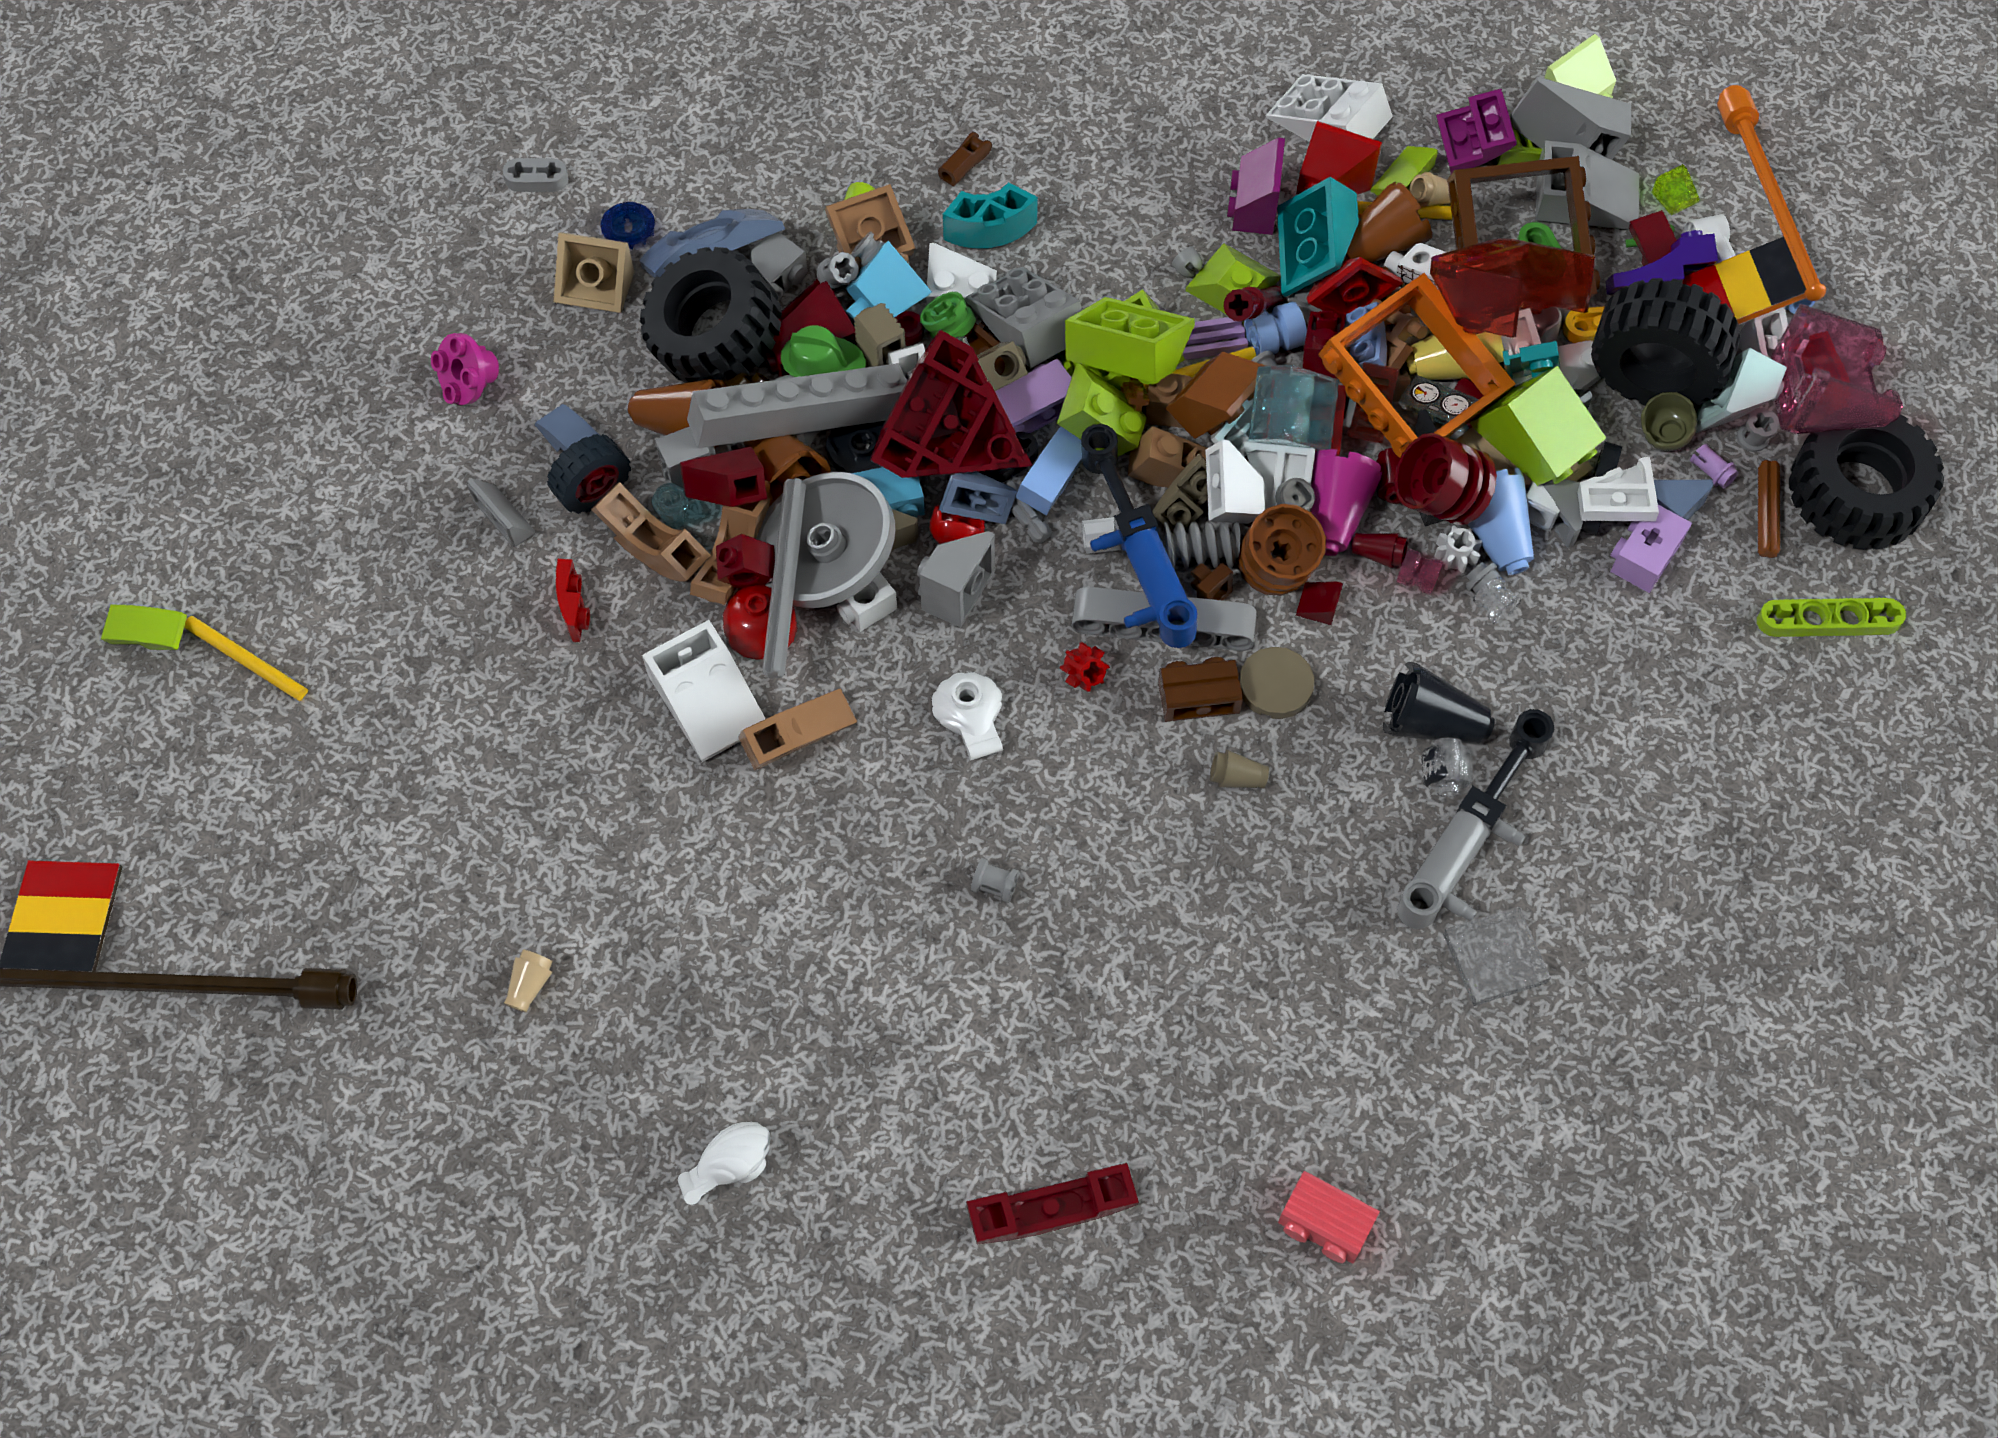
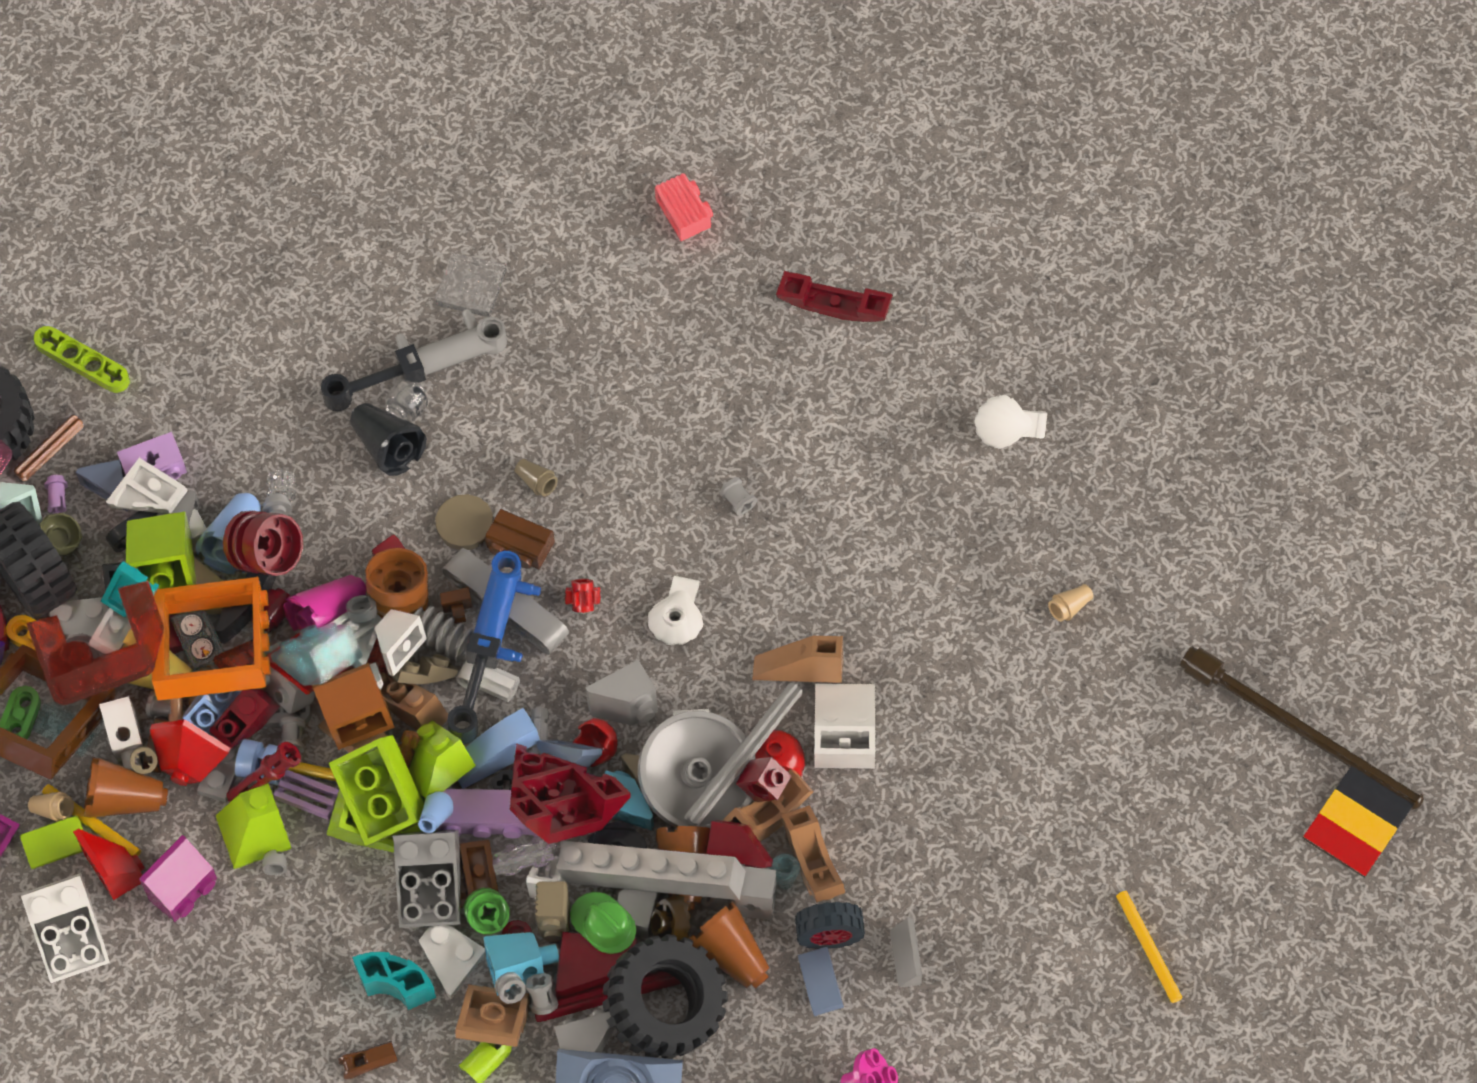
camera: 145 degrees left, 0 degrees up
(144, 626) = (1210, 1003): lime slope -> none
(570, 600) = (899, 842): red slope -> none
(1014, 364) = (484, 834): dark tan brick -> none
(1058, 348) = (435, 811): none -> light blue cone
(1315, 233) = (178, 800): teal slope -> none
(1382, 548) = (321, 564): dark red cone -> none
(1383, 254) = (137, 767): none -> dark tan bush
(1428, 575) = (314, 535): clear pink wheel -> none

